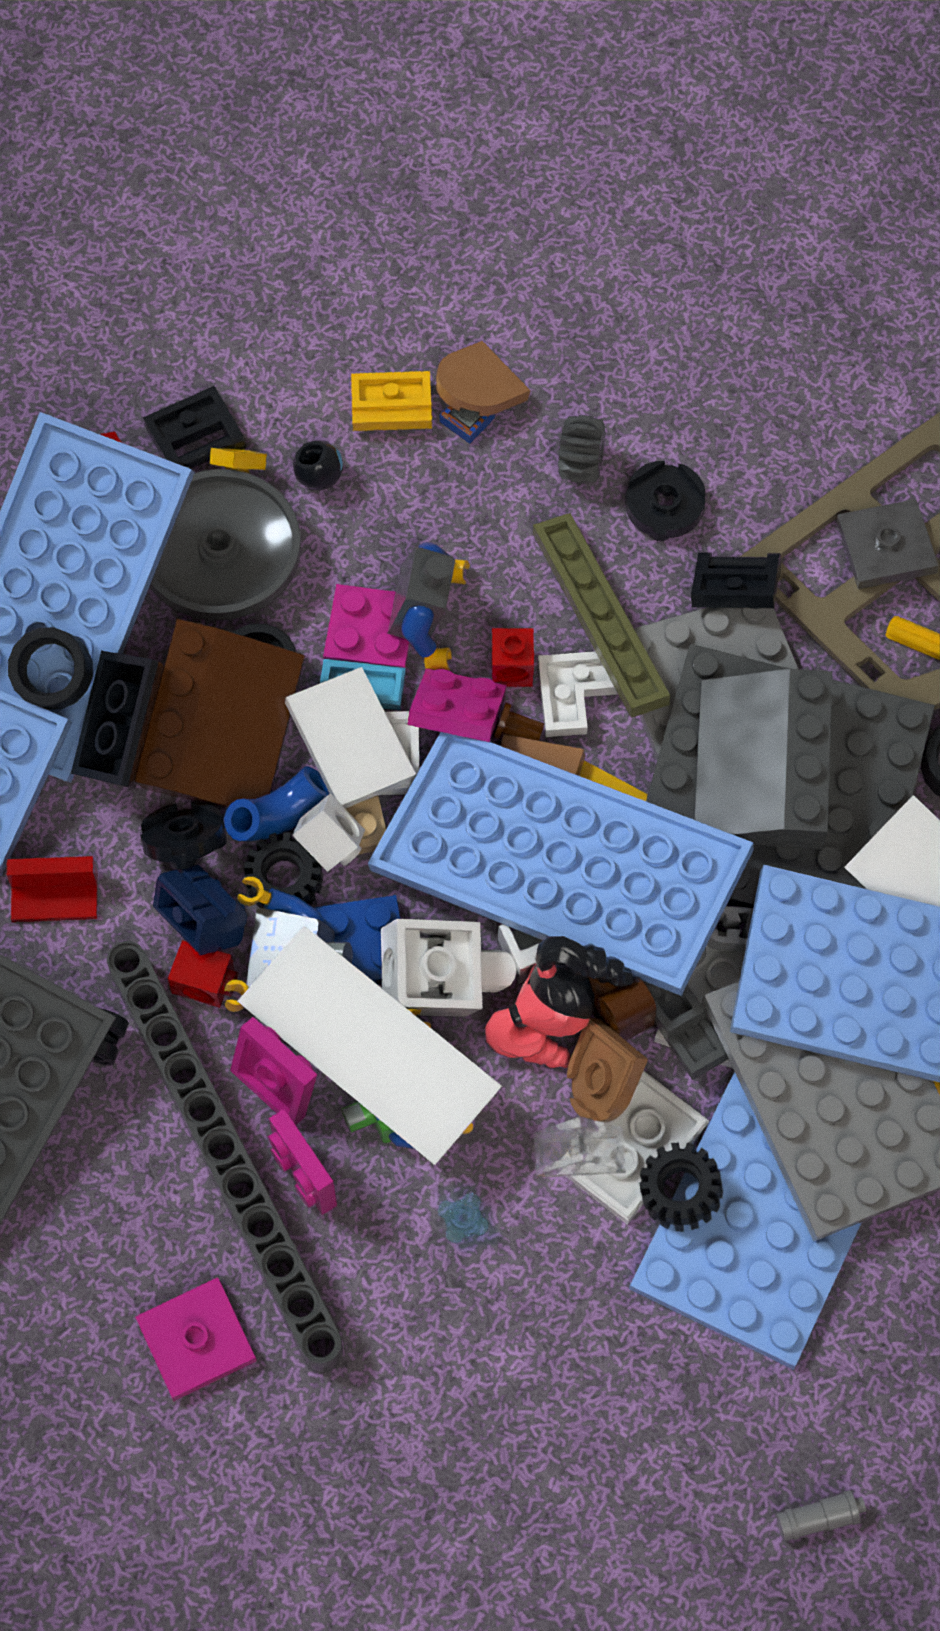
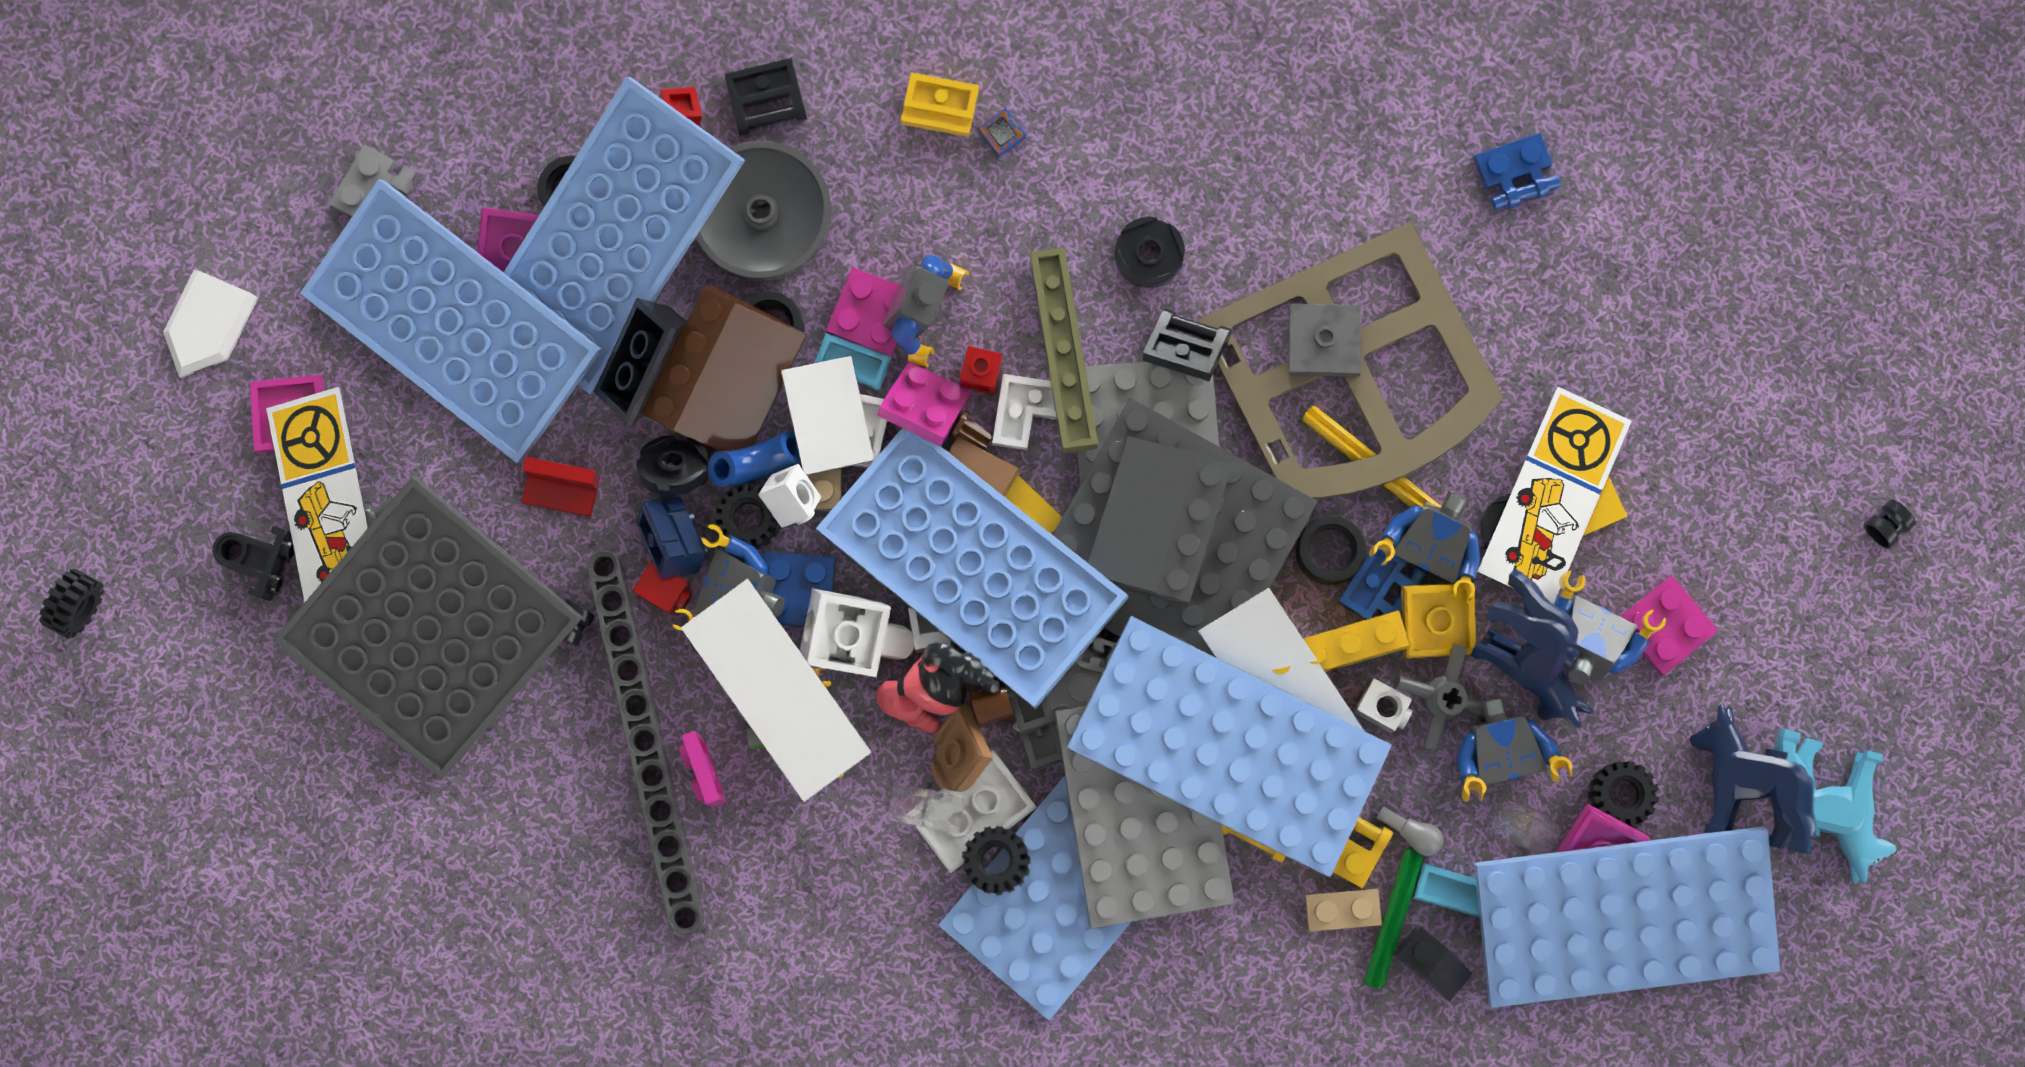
camera: 15 degrees right, 15 degrees up
(21, 655) = (566, 304): black tyre -> none
(195, 1339) = (592, 884): dark pink plate -> none
(238, 459) = (795, 133): yellow plate -> none
(273, 1070) = (704, 698): dark pink plate -> none
(318, 465) = (861, 154): black piece -> none
(459, 1230) = (813, 833): clear light blue plate -> none
(479, 381) = (1018, 104): medium nougat tile -> none
(581, 449) = (1088, 192): dark grey gear -> none

